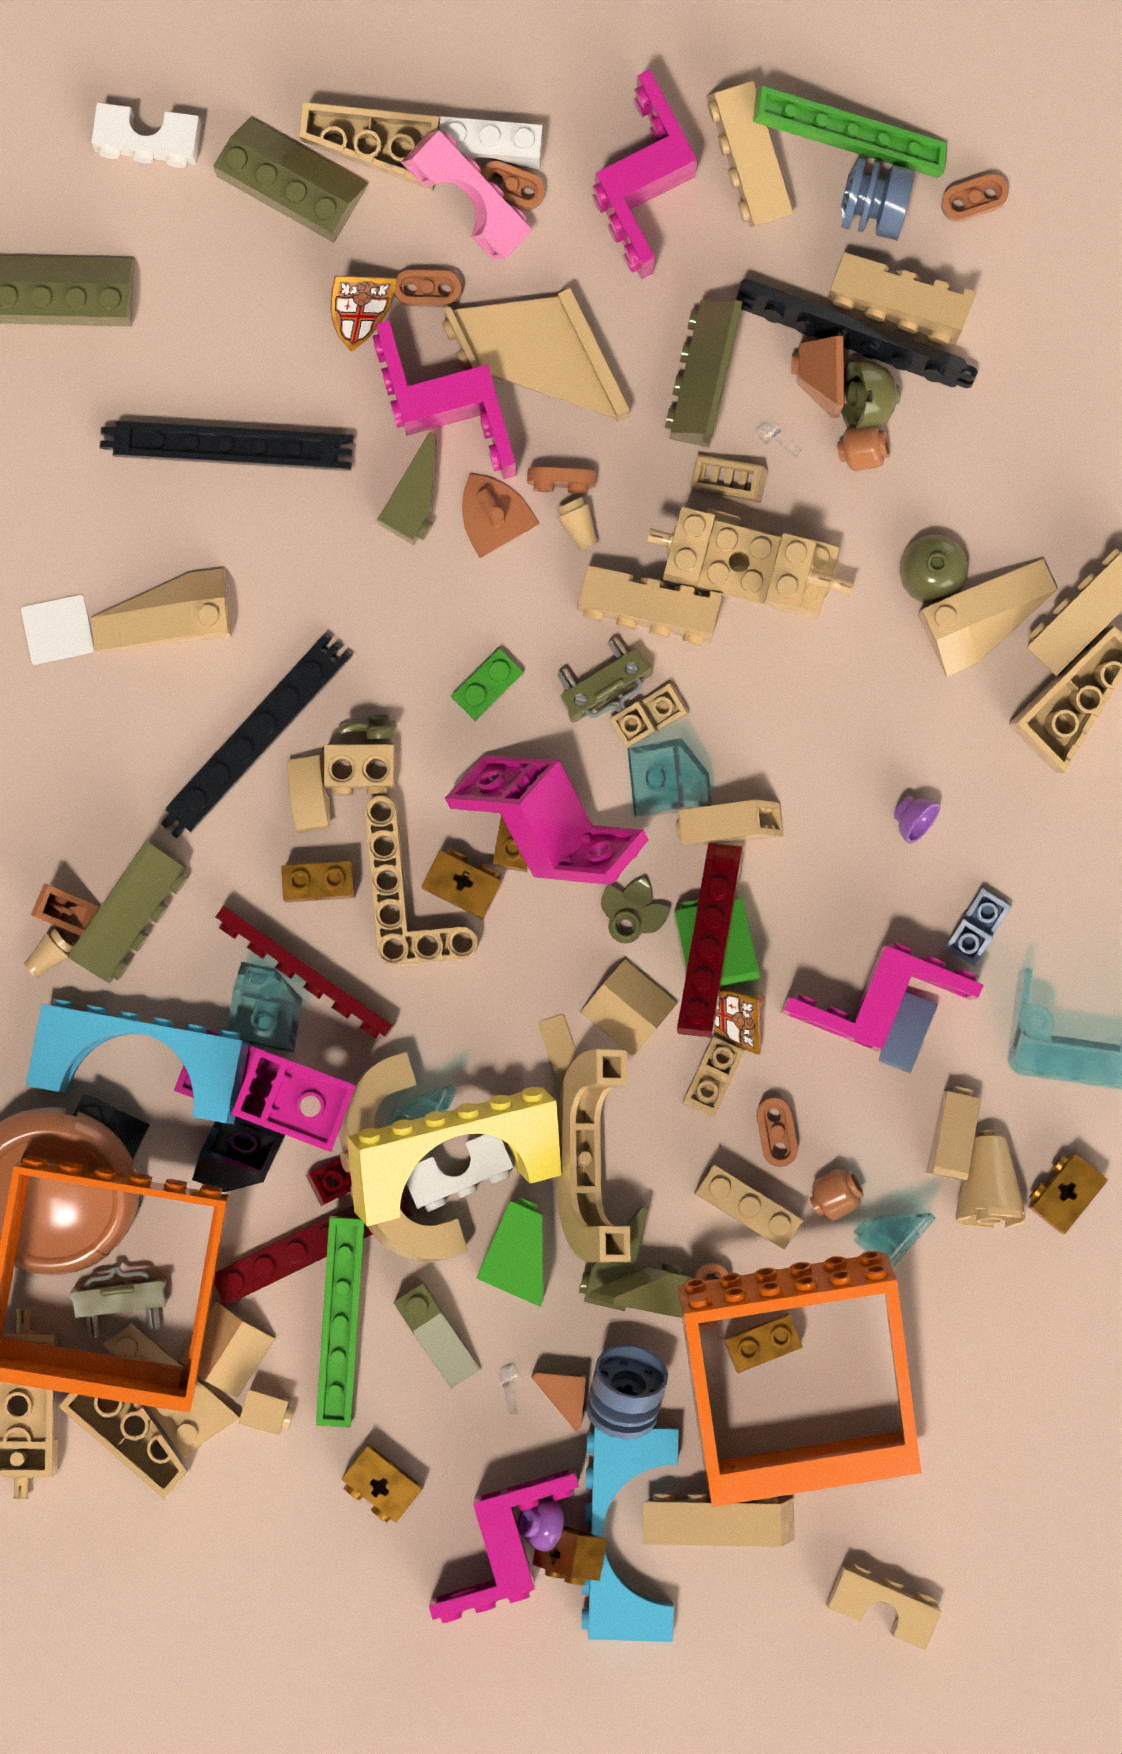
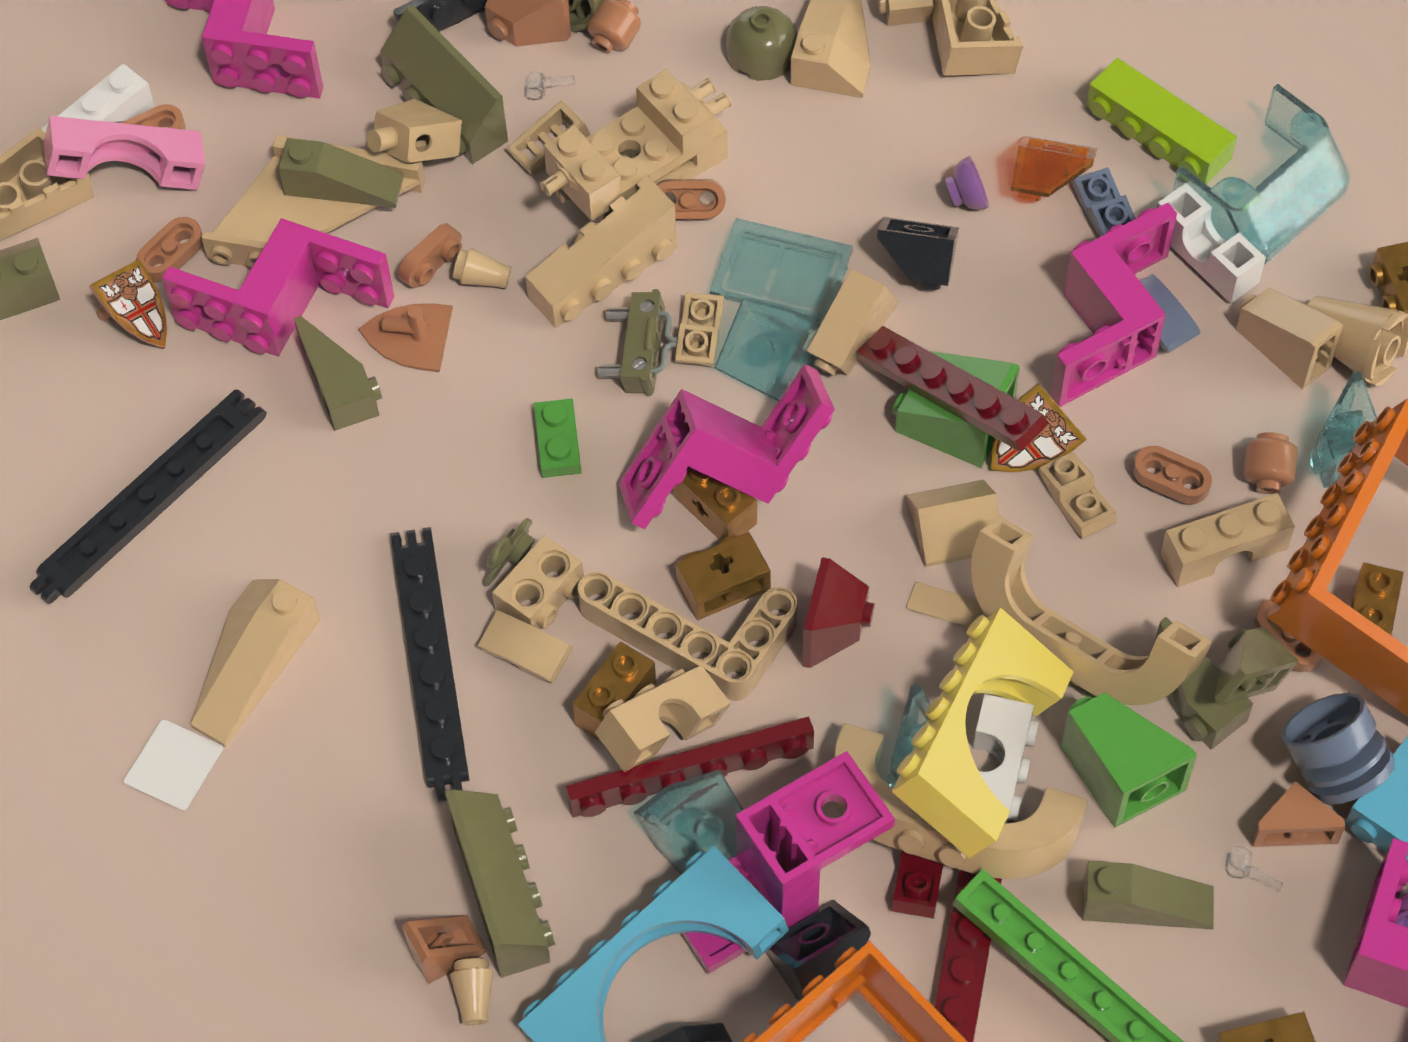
camera: 50 degrees left, 25 degrees down
(289, 922) = (685, 700): none -> tan arch
(485, 984) = (835, 613): none -> dark red slope
(569, 364) = (335, 174): none -> olive slope
(635, 906) = (863, 455): olive plate -> none
(646, 386) = (415, 132): none -> tan torso
(743, 735) = (781, 268): none -> clear light blue piece
(750, 625) = (688, 197): none -> nougat plate
(834, 820) = (920, 249): none -> black slope
(981, 864) = (1048, 166): none -> clear orange slope
(990, 1027) = (1227, 265): none -> white arch
(1083, 915) = (1160, 121): none -> lime brick

